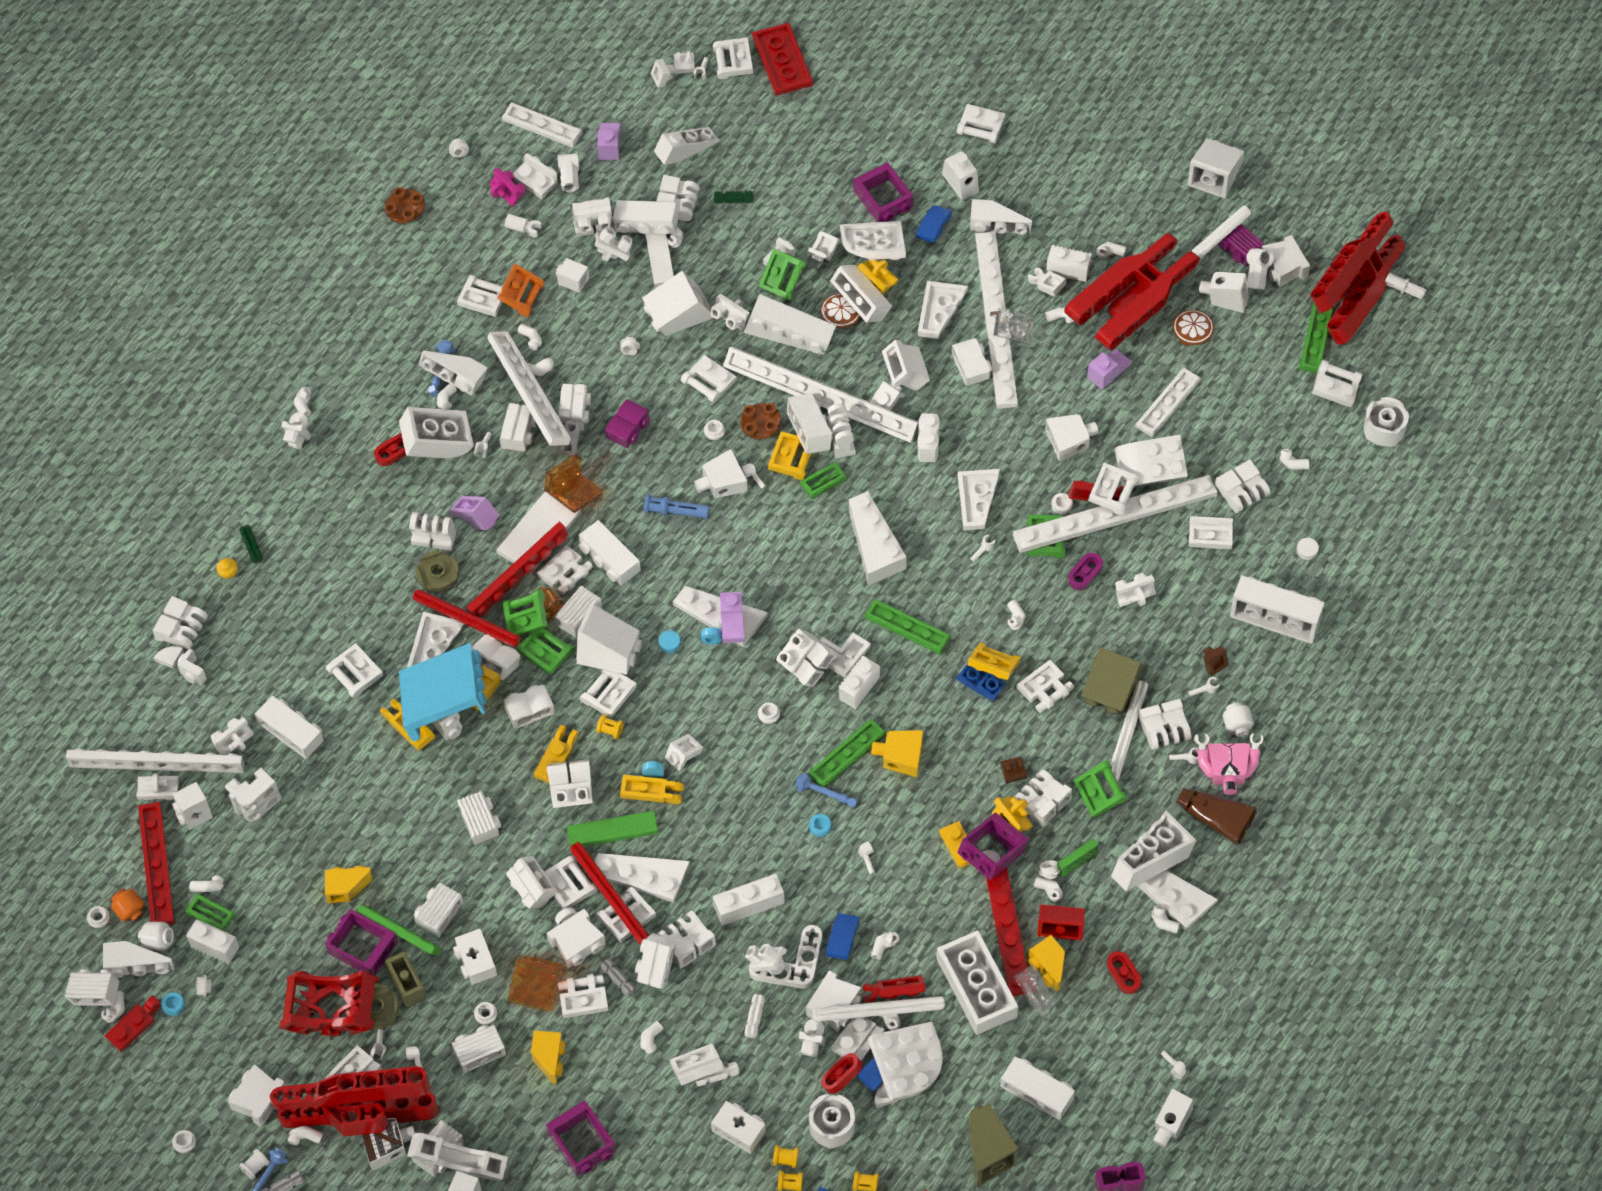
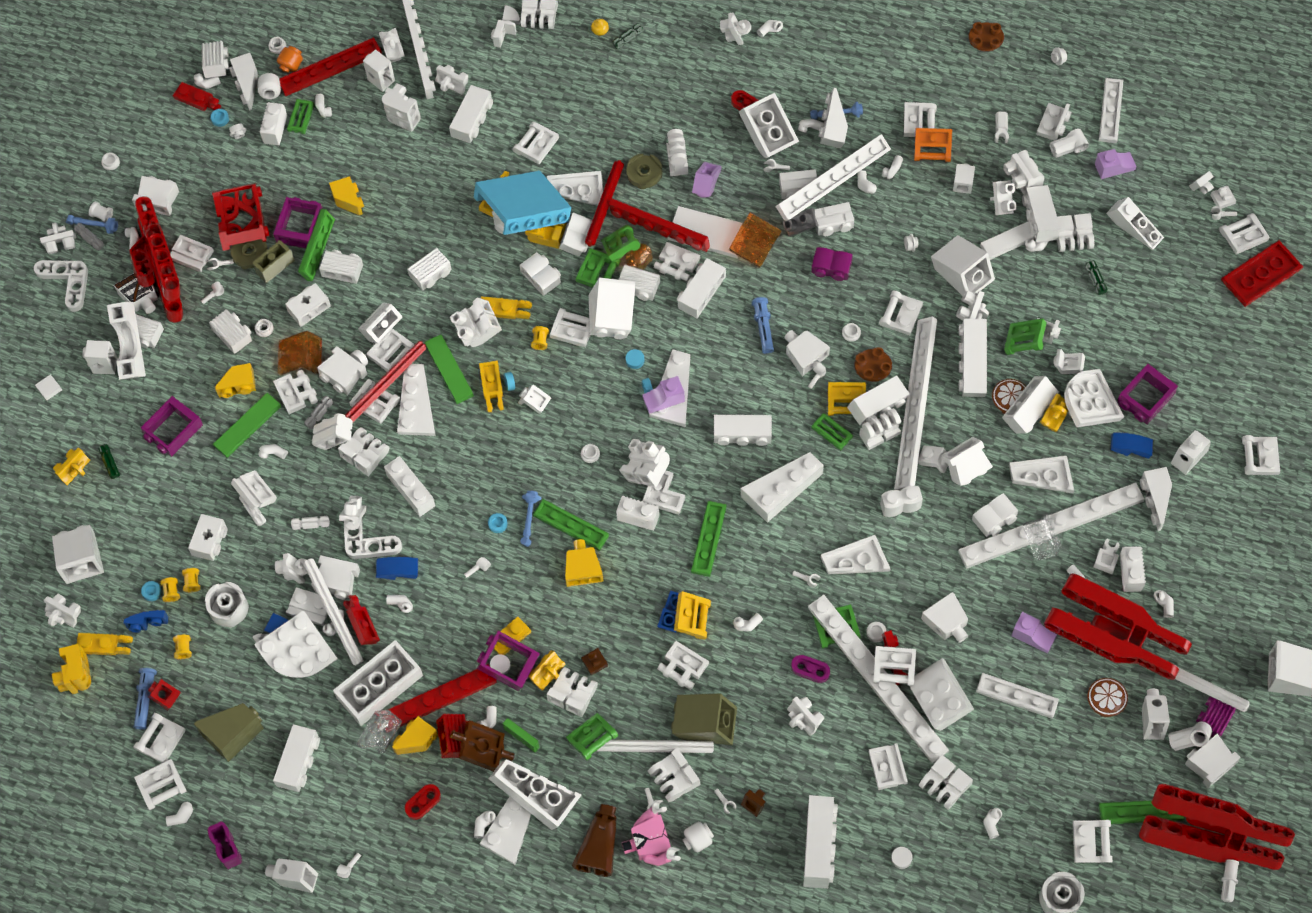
camera: 75 degrees right, 5 degrees up
(503, 186) = (1031, 100): dark pink hips -> none
(606, 1058) = (247, 425): none -> bright green tile
(794, 559) = (743, 429): none -> white brick
(841, 1073) = (272, 601): red plate -> none
(1049, 869) = (503, 713): white plate -> none
(1082, 894) = (482, 745): none -> reddish brown plate

